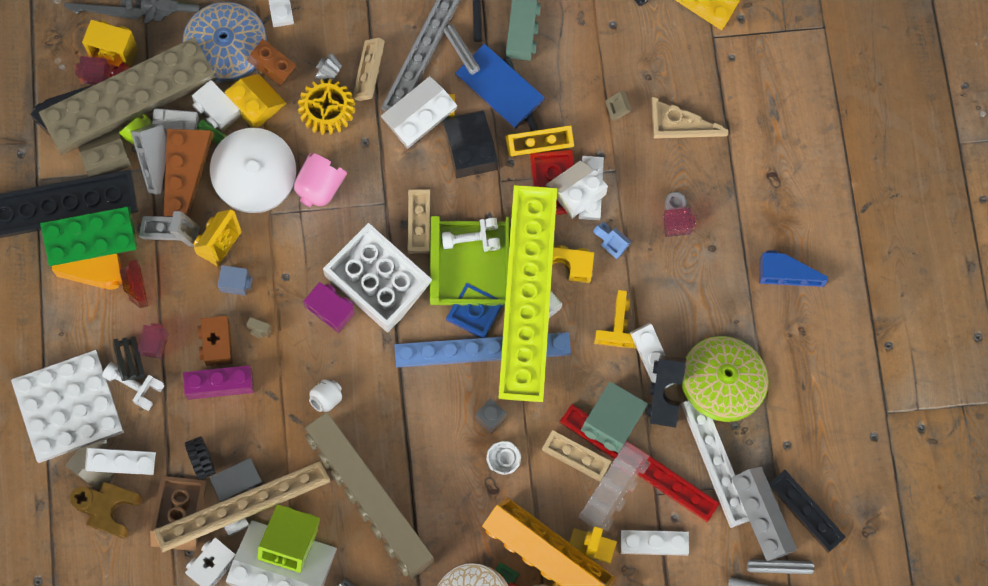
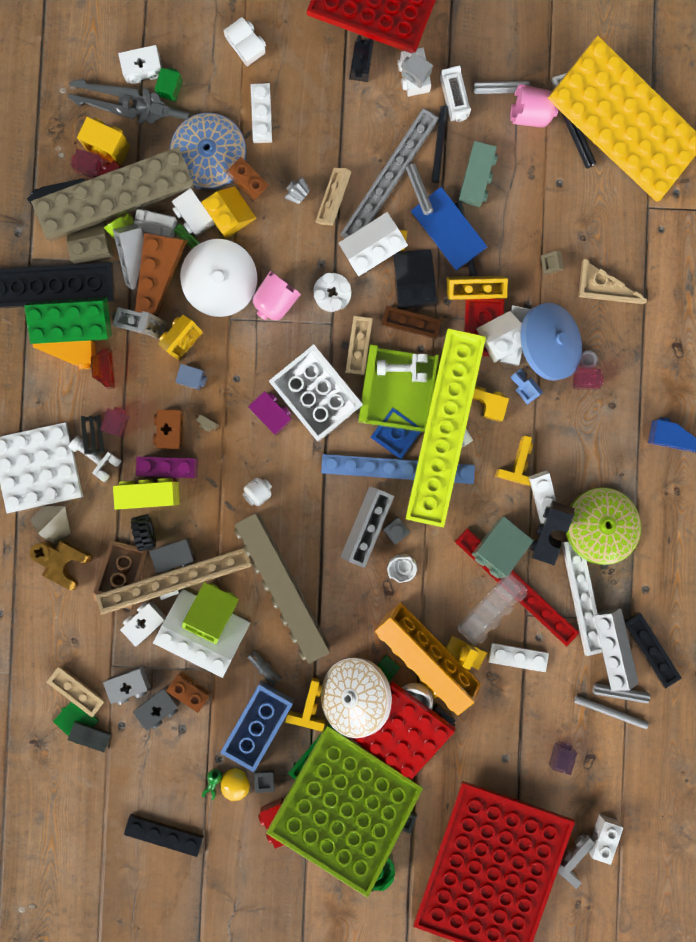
camera: 10 degrees right, 15 degrees up
(120, 461) = (75, 525): white plate -> none
(199, 414) = (146, 494): none -> neon yellow brick
(327, 90) = (284, 224): yellow gear -> none
(375, 159) = (331, 281): none -> white plate
(456, 415) = (367, 527): none -> light grey brick
(473, 189) = (411, 322): none -> reddish brown plate
(576, 456) = (464, 574): tan plate -> none
(630, 185) = (551, 341): none -> medium blue dish

